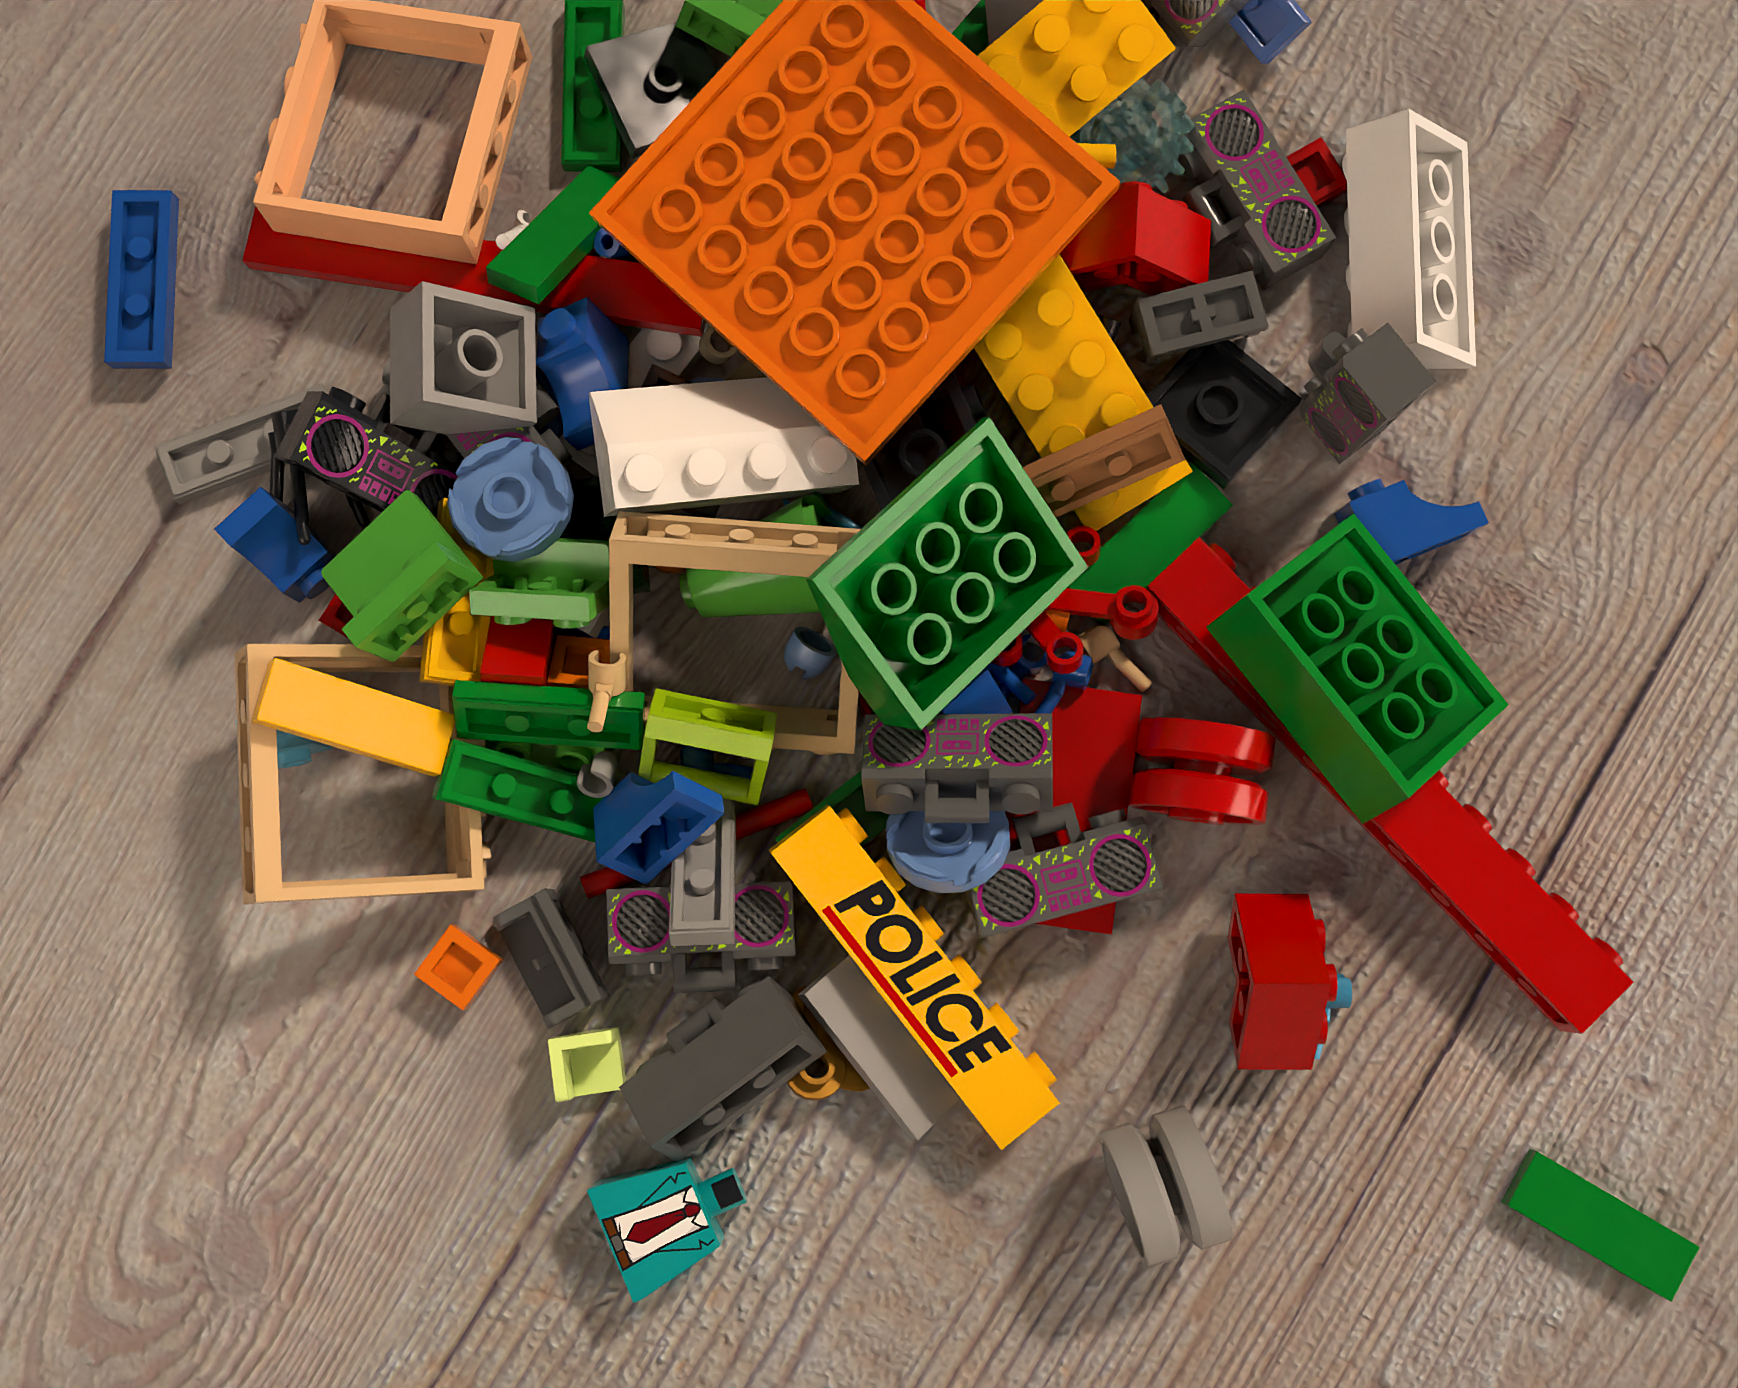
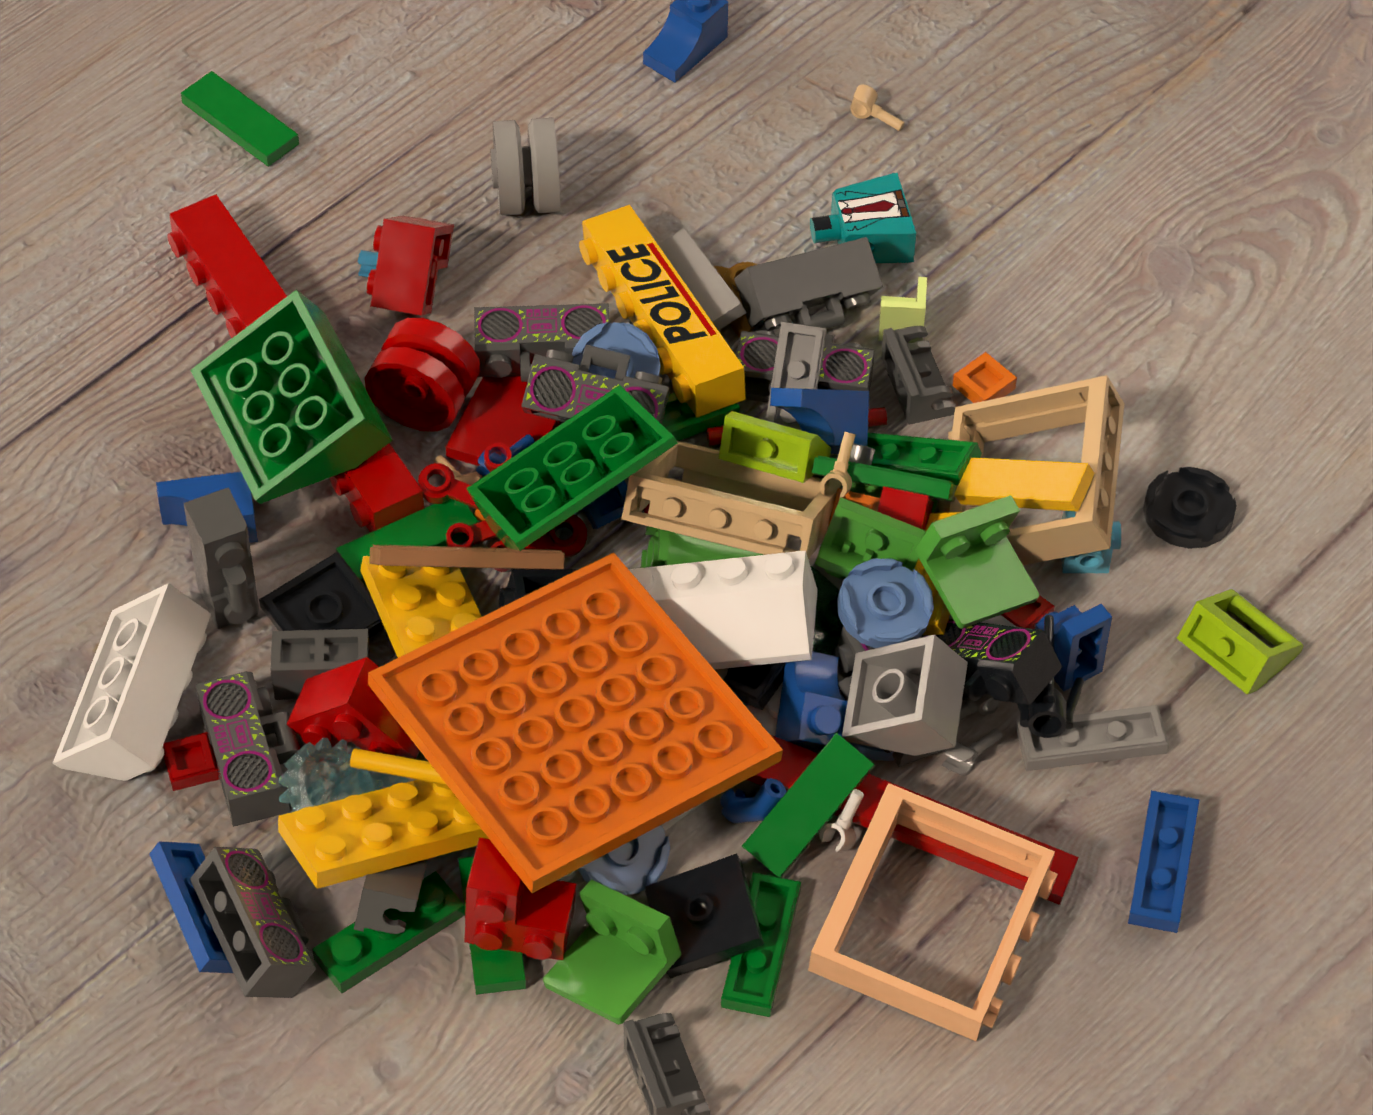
camera: 165 degrees left, 30 degrees down
(93, 601) = (1232, 647): none -> lime tile
(165, 825) = (1189, 507): none -> black tile

